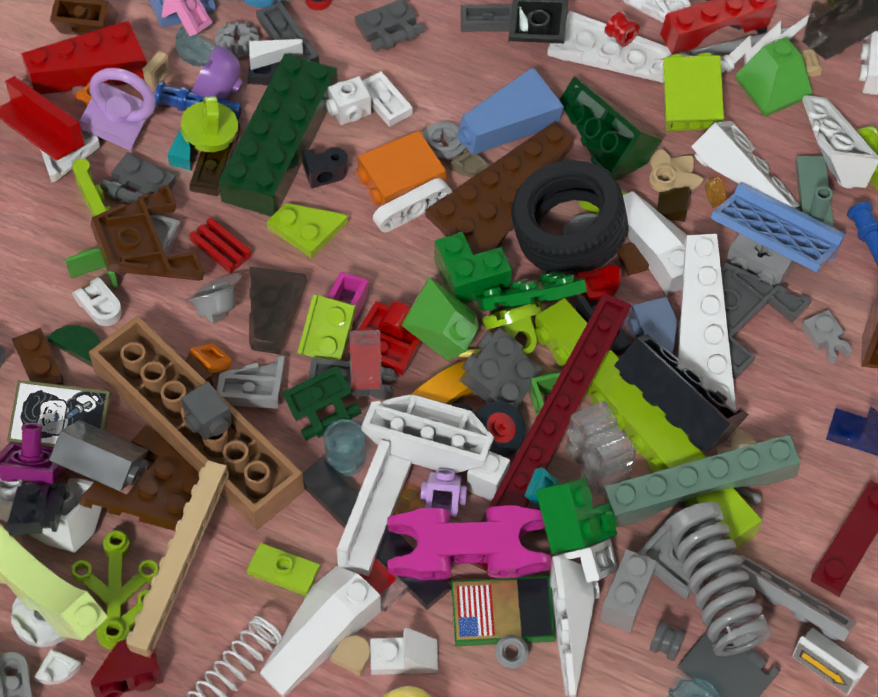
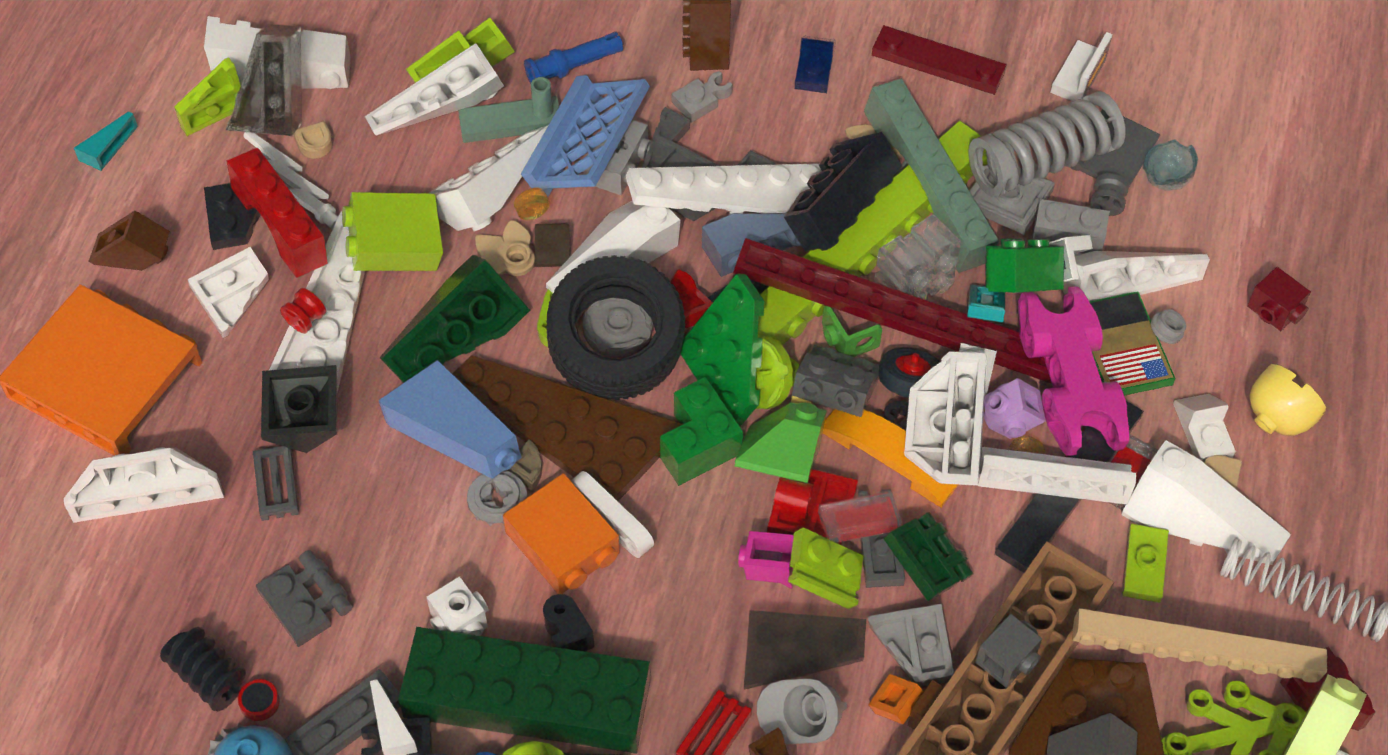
camera: 100 degrees left, 0 degrees up
(306, 227) = (664, 634): lime wing -> none
(345, 447) = (983, 518): clear light blue wheel -> none
(387, 99) = (436, 572): white plate -> none
(775, 77) = (345, 162): bright green slope -> none
(803, 605) = (1033, 86): light grey plate -> none

